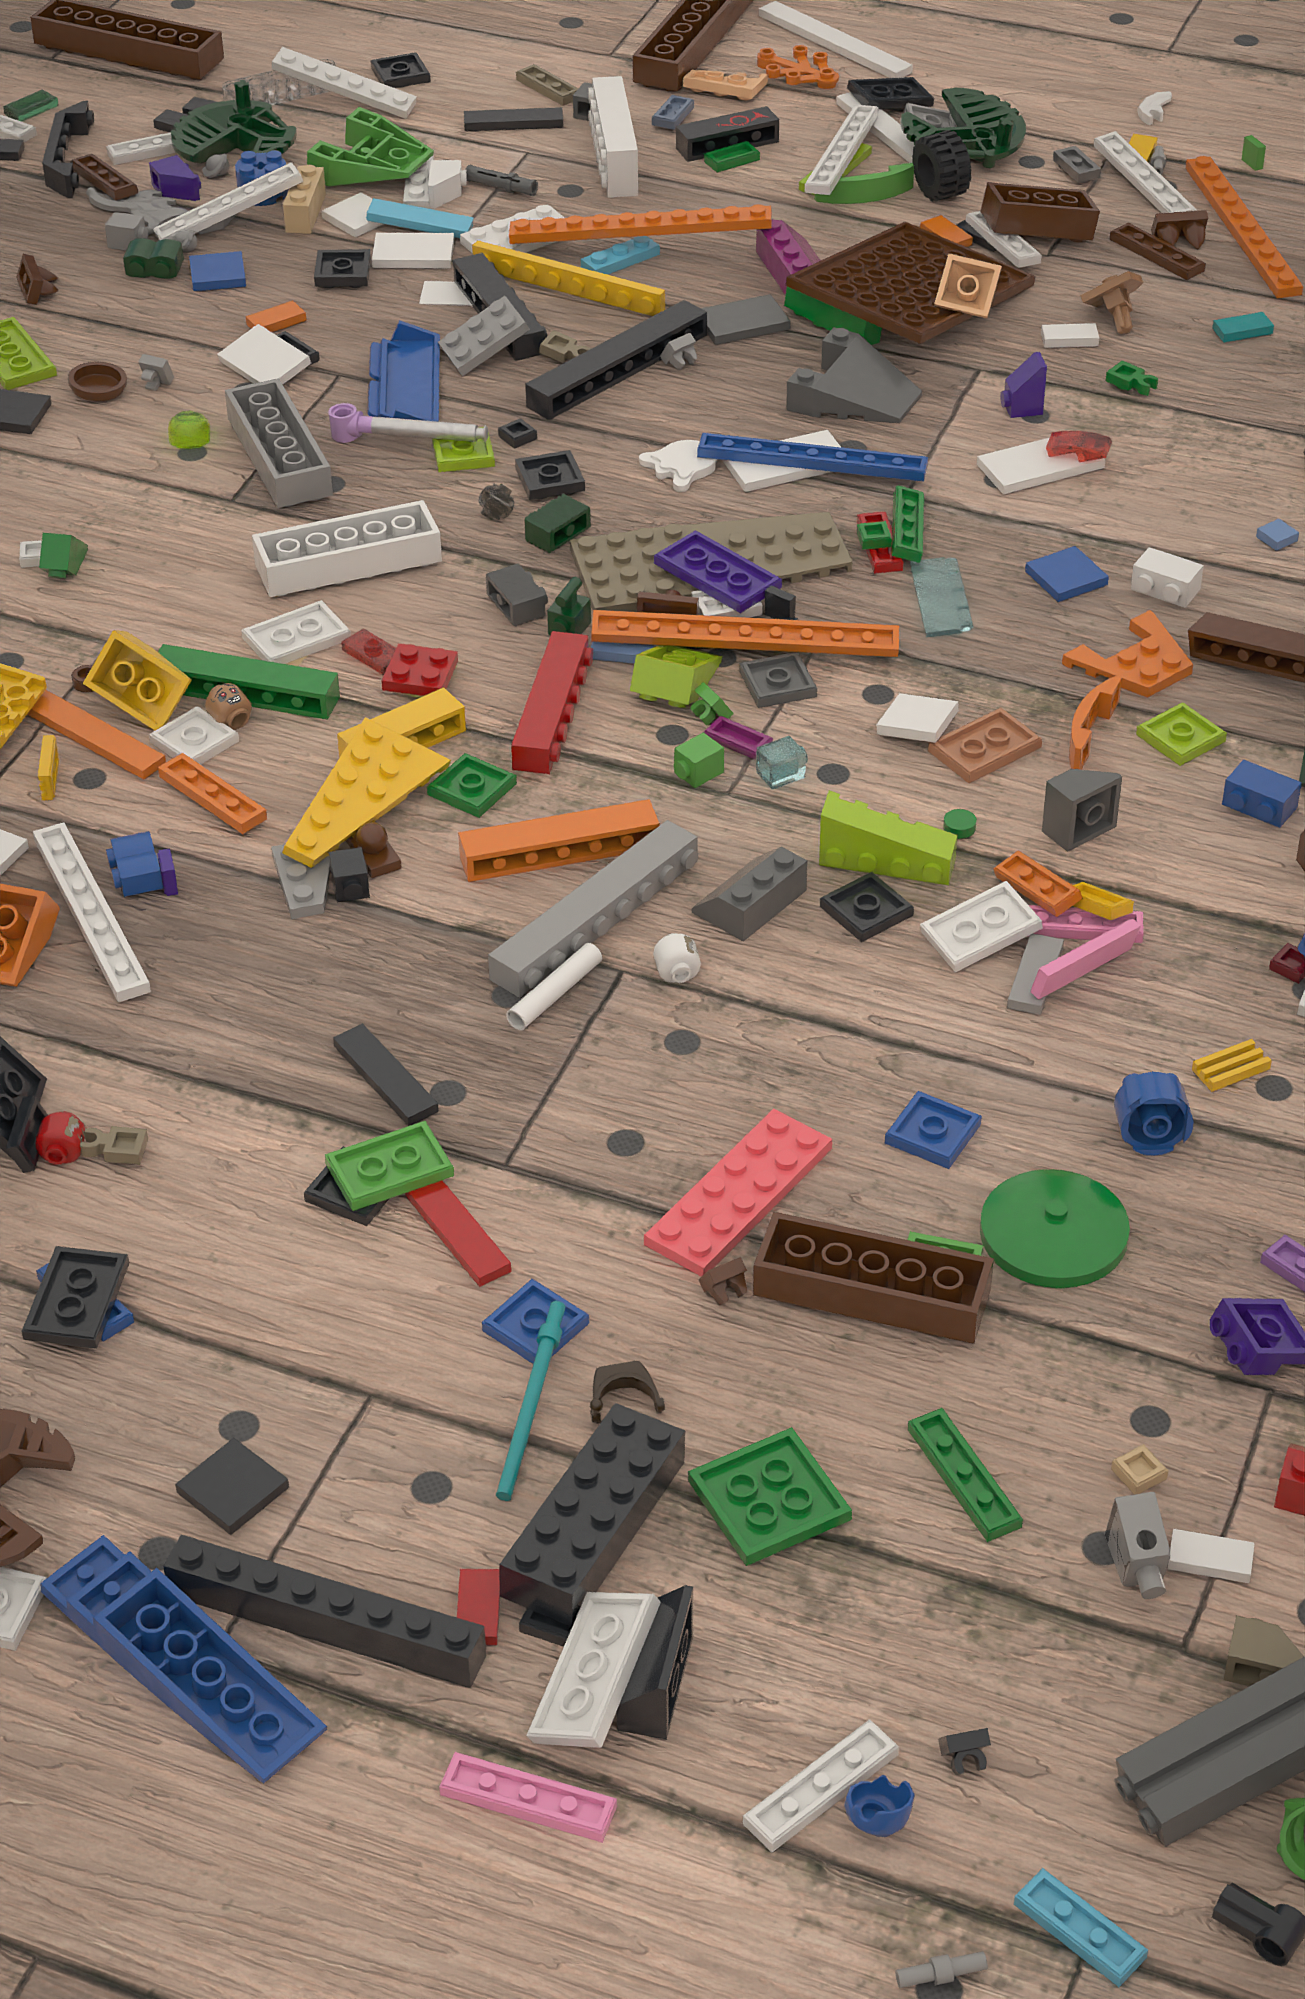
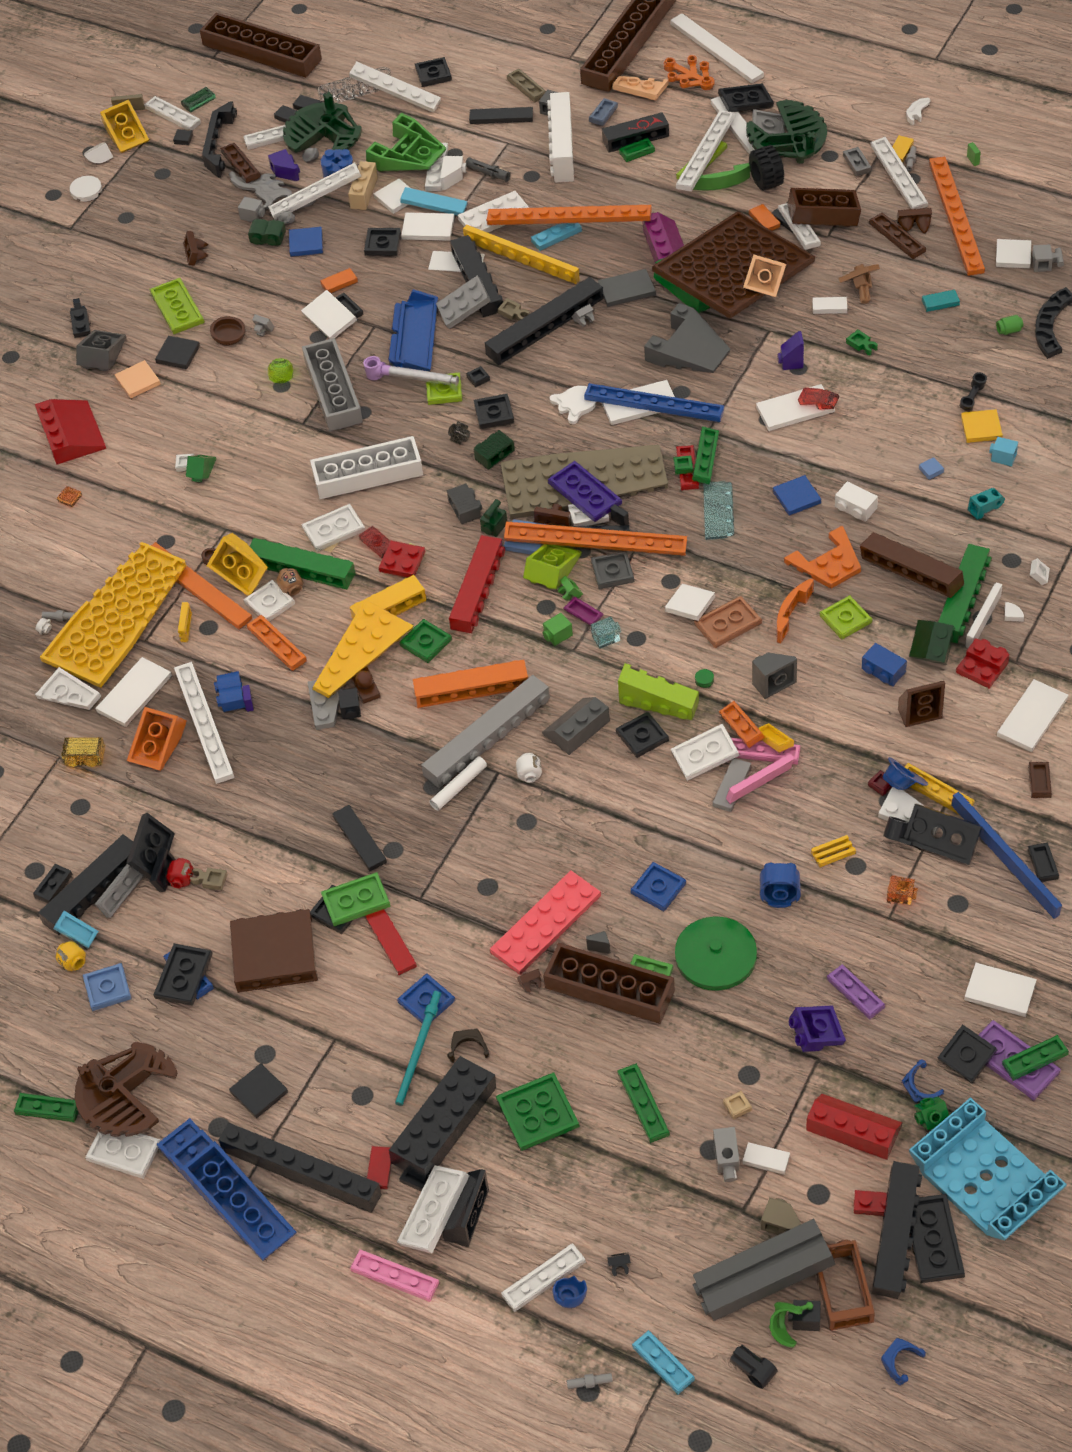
camera: 10 degrees right, 10 degrees up
(244, 1253) = (273, 950): none -> reddish brown panel
(843, 1212) = (598, 942): none -> dark grey slope

